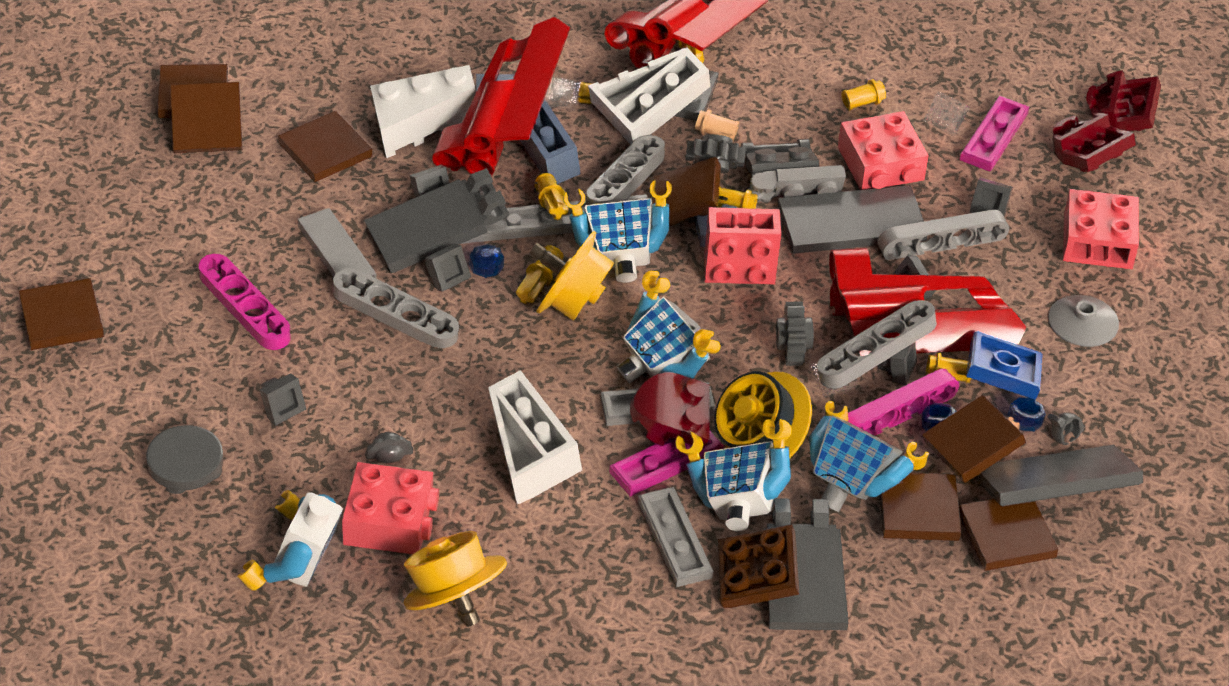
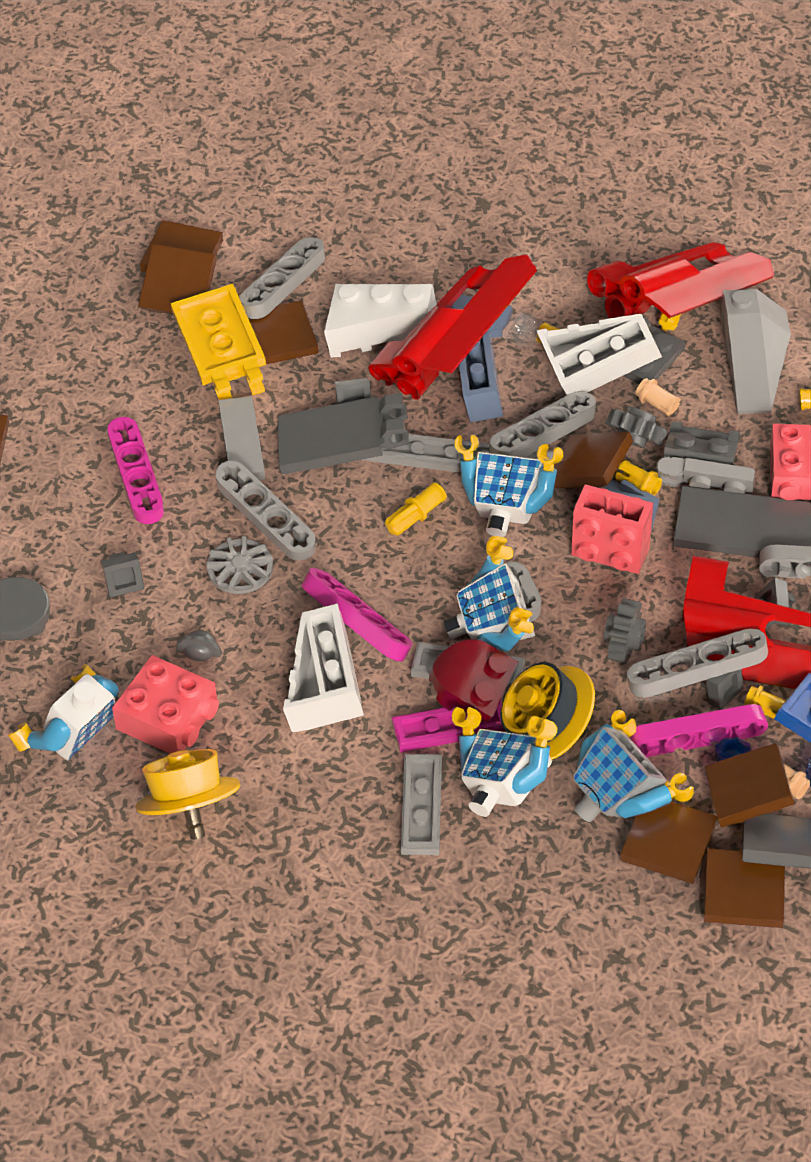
camera: 25 degrees right, 5 degrees up
(276, 162) = (220, 340): none -> yellow tile
(296, 118) = (261, 299): none -> light grey beam
(392, 365) = (240, 565): none -> light grey wheel
(447, 267) = (331, 482): dark grey tile -> none
(486, 260) = (373, 483): clear blue tile -> none
(546, 385) = (357, 614): none -> dark pink beam
(551, 195) = (460, 425): yellow axle -> none
(576, 280) = (437, 524): yellow piece -> none
(758, 567) = (481, 857): reddish brown tile -> none
(781, 63) = (756, 347): none -> light grey wedge
(820, 574) = (527, 872): dark grey tile -> none

